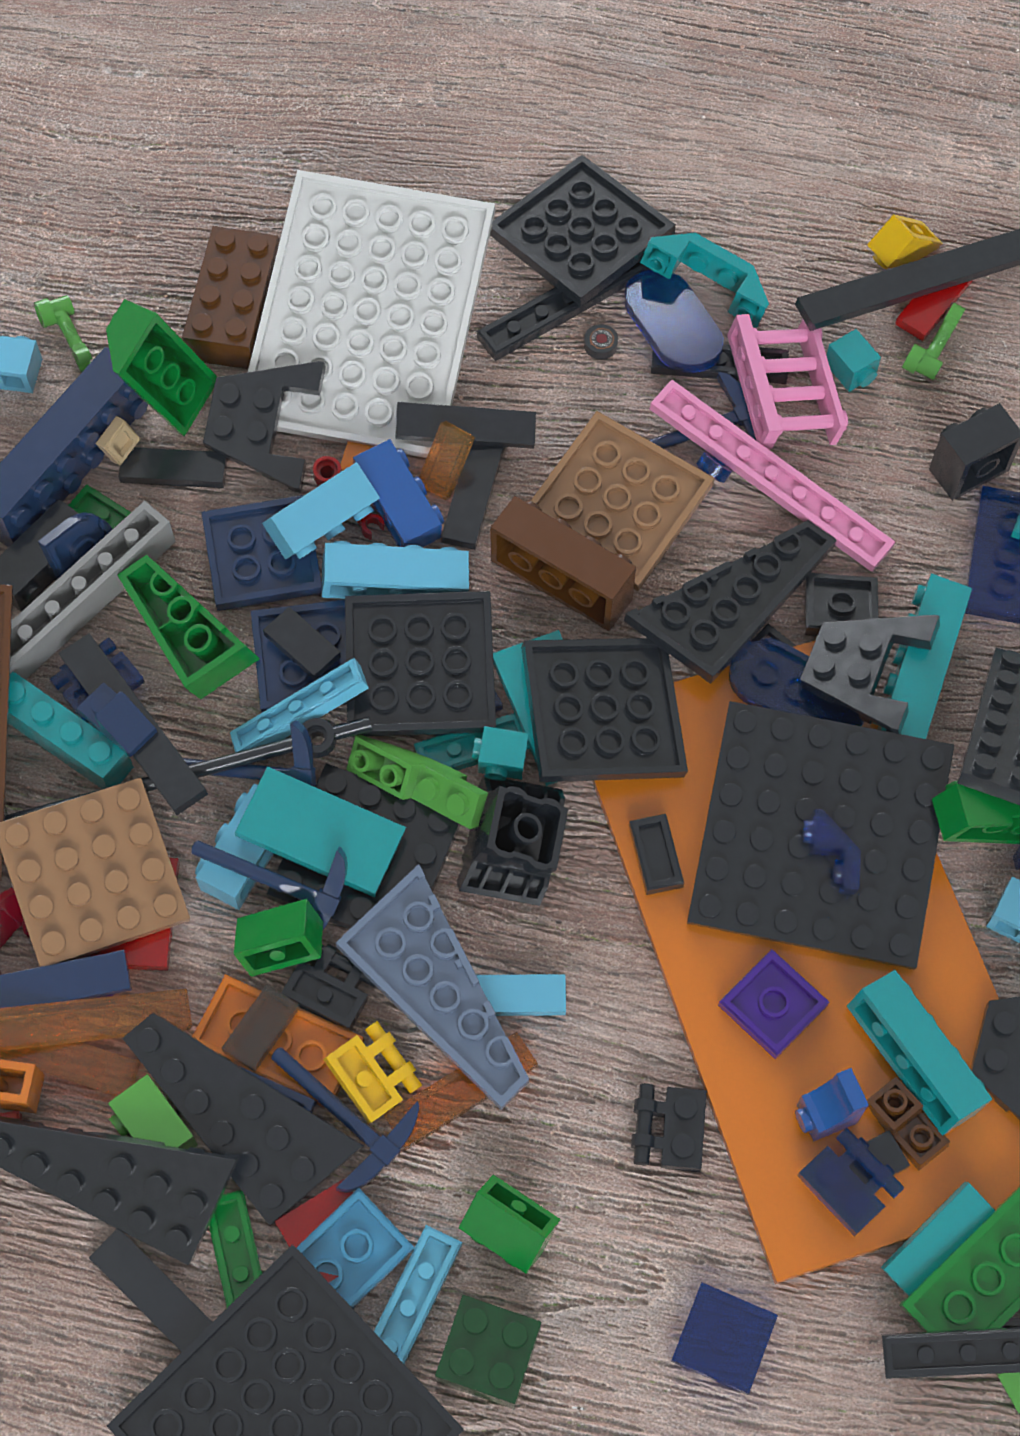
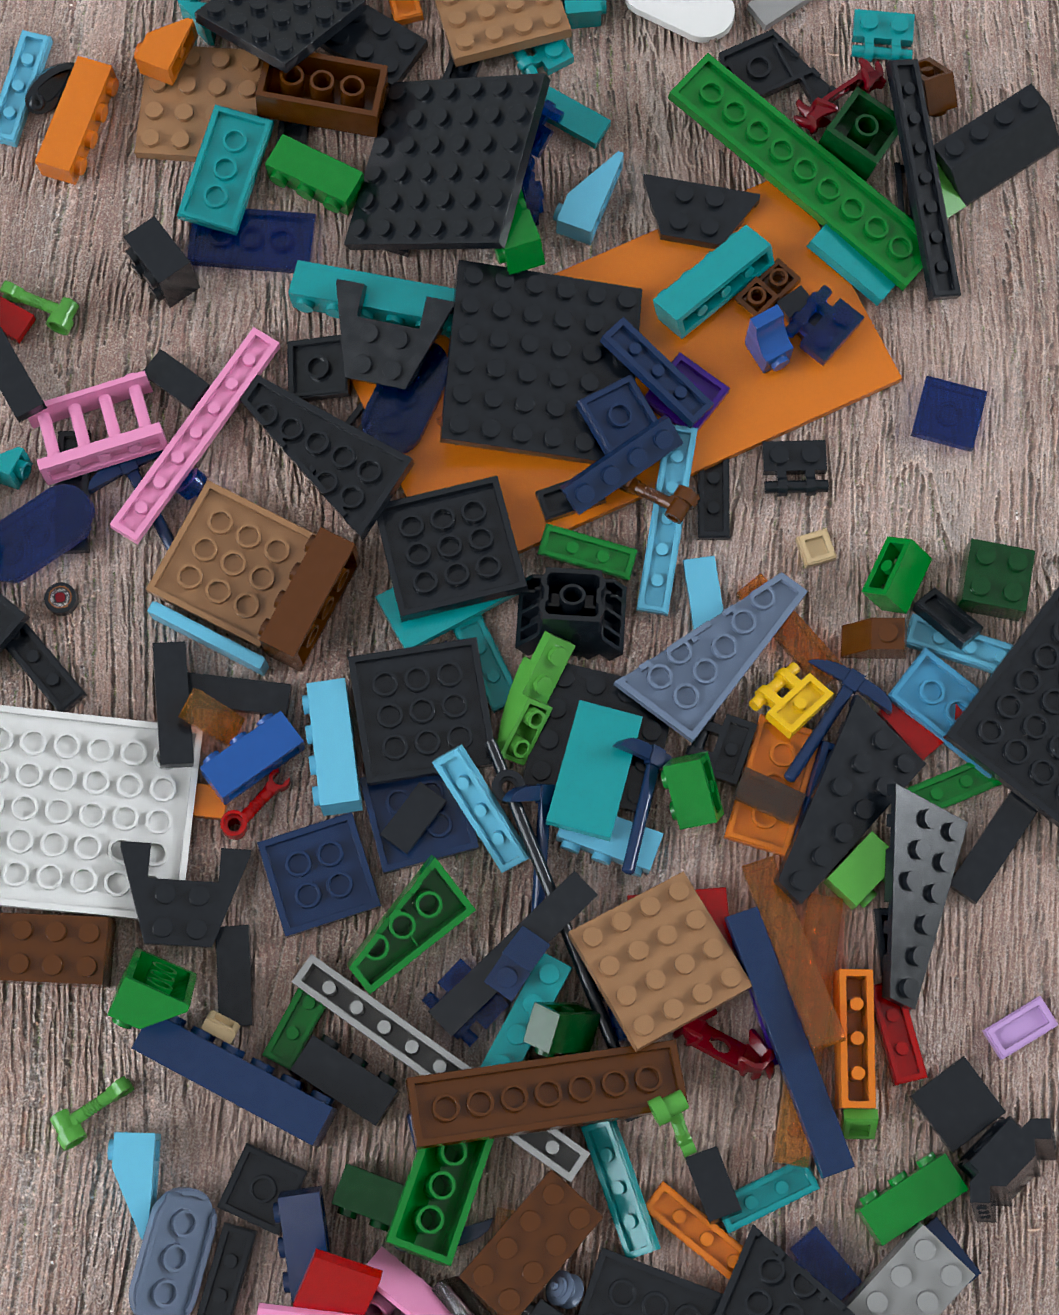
camera: 95 degrees left, 10 degrees up
(39, 759) = (561, 1028): none -> dark green brick
(72, 540) = (342, 1040): dark blue tile -> none
(322, 512) = (282, 818): medium azure brick -> none
(430, 1188) = (875, 639): none -> reddish brown slope
(447, 1282) = (947, 618): none -> black tile
(500, 753) = (500, 630): teal brick -> none
(541, 462) = (208, 638): none -> medium azure tile
(562, 1138) = (816, 548): none -> tan tile
(587, 867) = (587, 552): none -> green tile
(618, 961) = (663, 533): none -> medium azure tile
(628, 964) = (676, 504): none -> reddish brown brick
(636, 1025) = (714, 502): none -> black tile
(682, 904) = (621, 464): none -> dark blue plate
(746, 911) = (616, 413): none -> dark blue tile
(797, 961) = (656, 372): none -> dark blue plate
(829, 839) = (557, 352): clear blue slope -> none
(837, 461) = (176, 379): none -> black slope
(853, 360) = (68, 372): teal brick -> none

